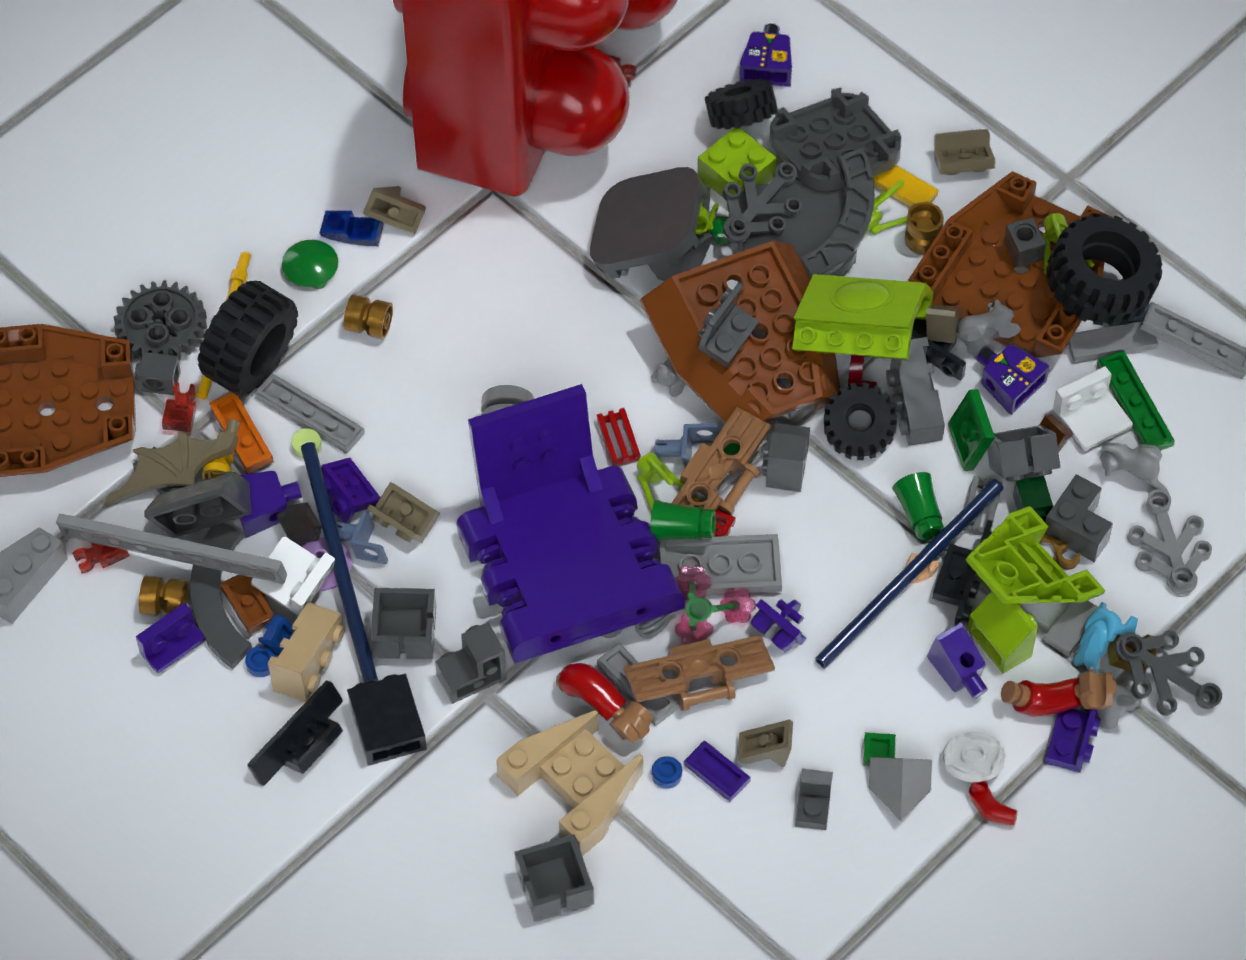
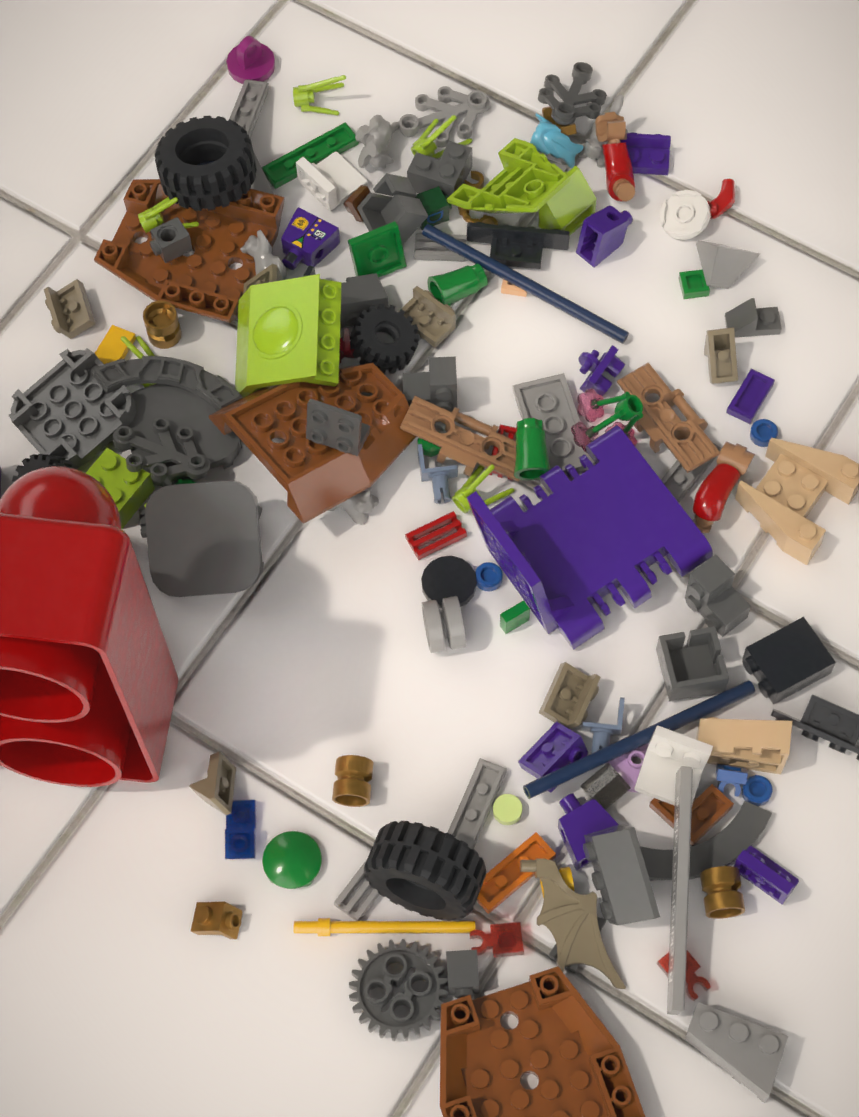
camera: 100 degrees left, 5 degrees up
(268, 198) = (216, 919): none -> pearl gold bracket
(881, 471) = (431, 316): none -> dark tan bracket
(1121, 512) = (425, 144): none -> lime plant
(1218, 407) = (304, 94): none -> lime plant

